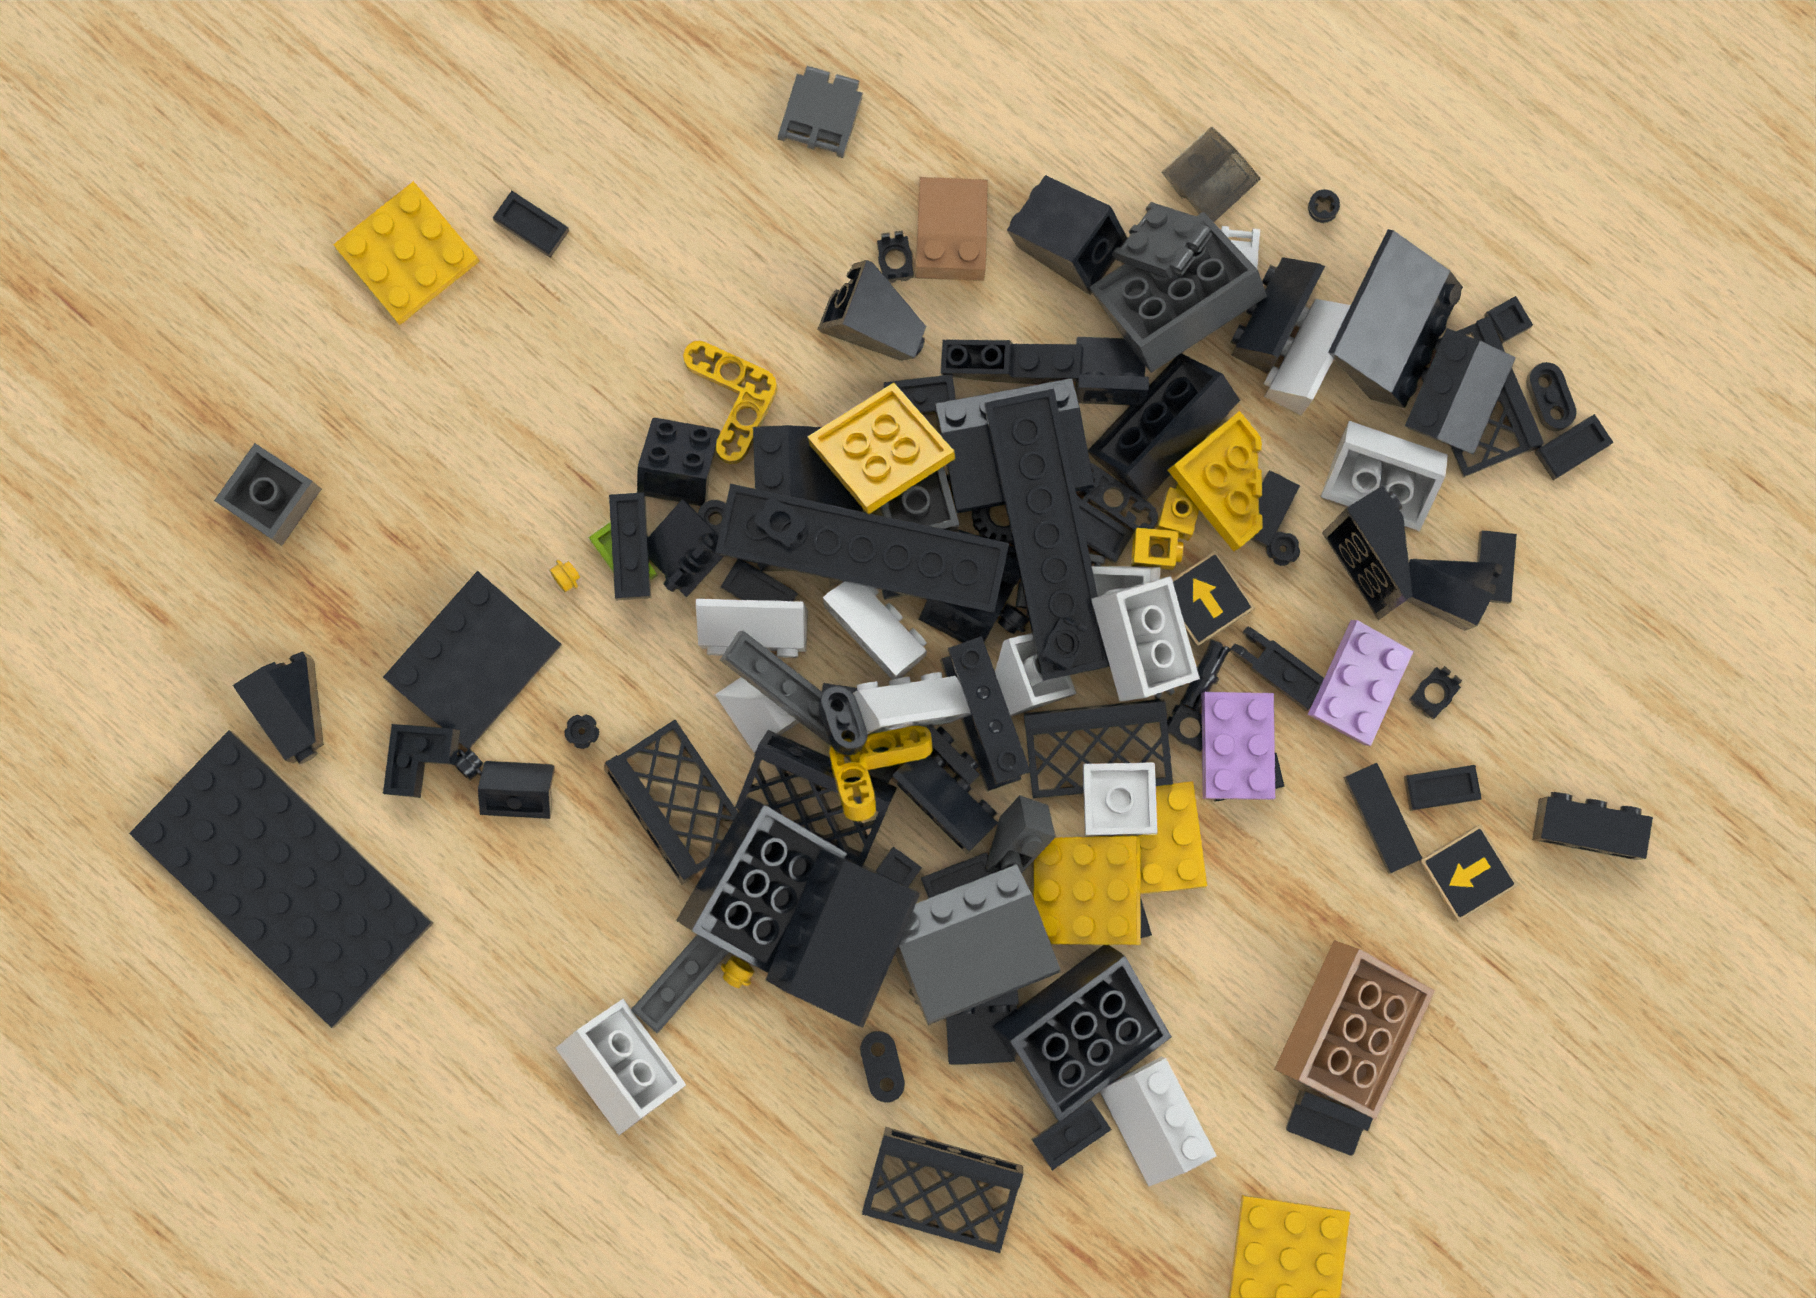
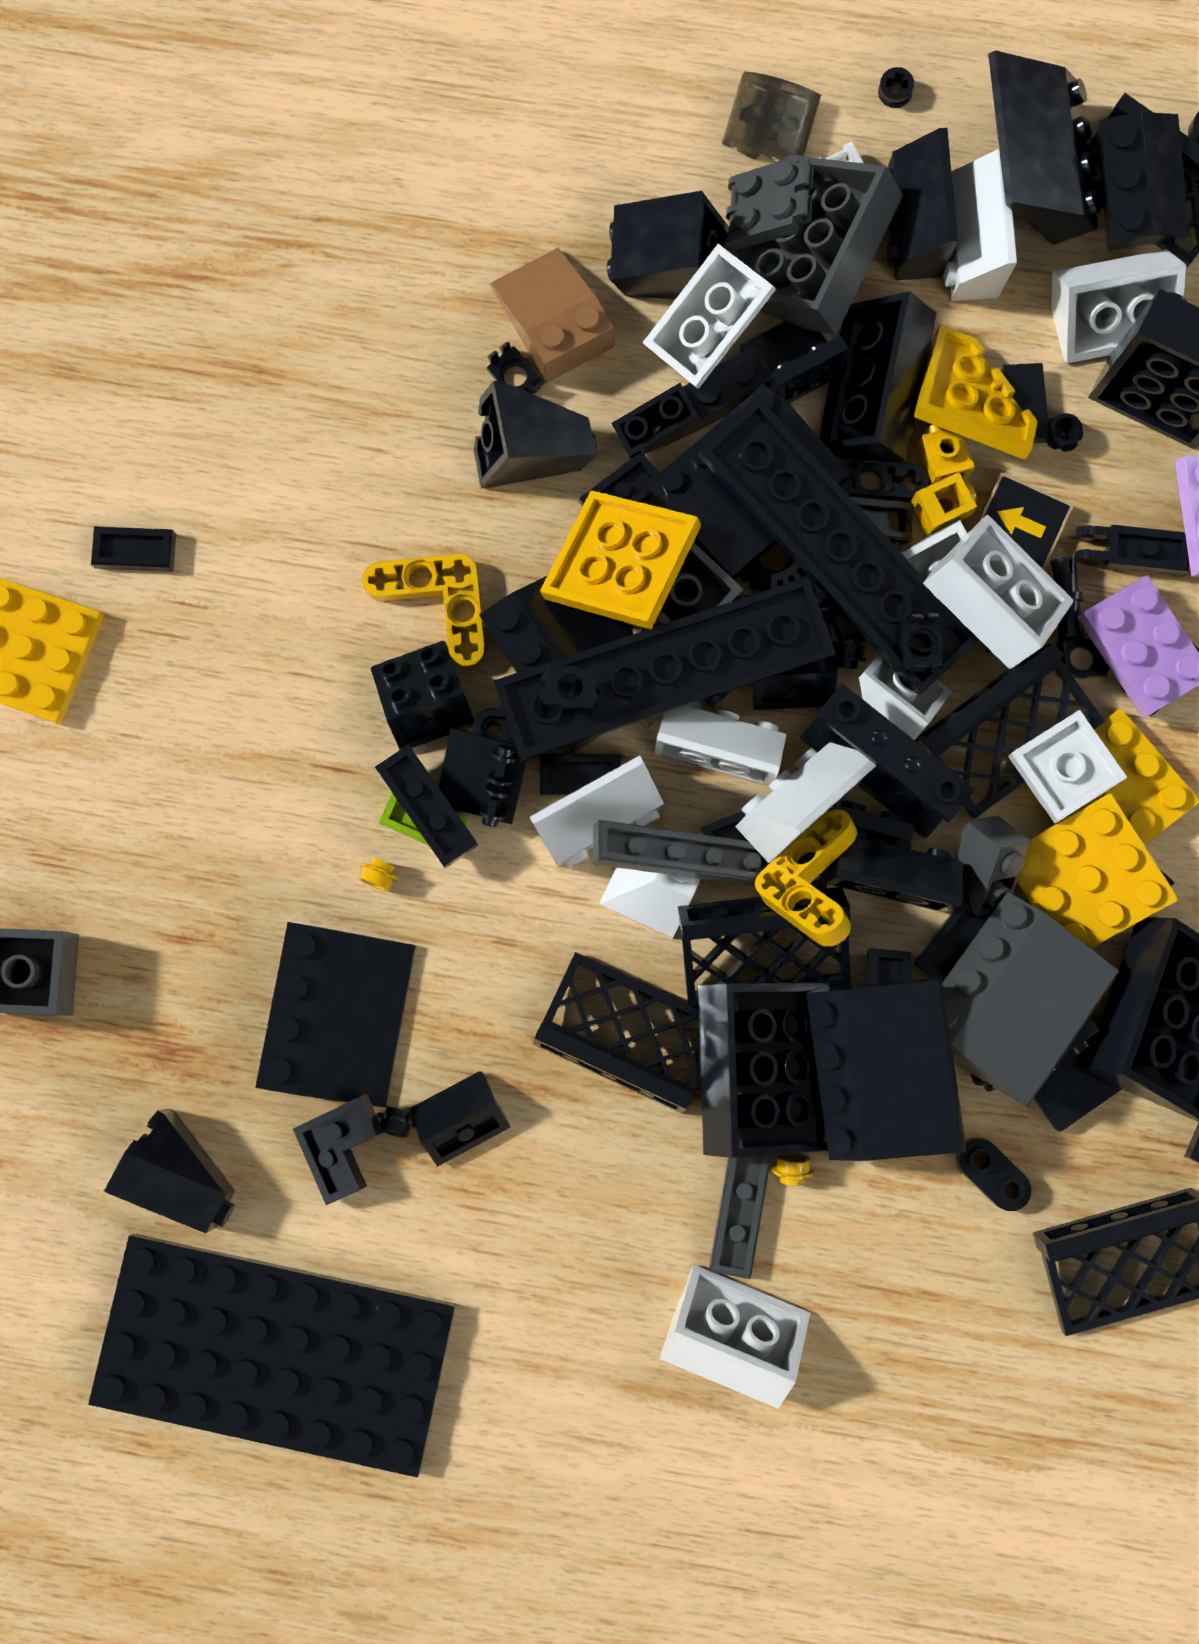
camera: 25 degrees left, 0 degrees up
(572, 731) = (497, 1027): black plate -> none
(821, 111) = (356, 273): dark grey plate -> none
(843, 723) = (756, 851): black plate -> none
(1059, 303) = (709, 315): none -> white slope
(1509, 319) = (1140, 87): black tile -> none

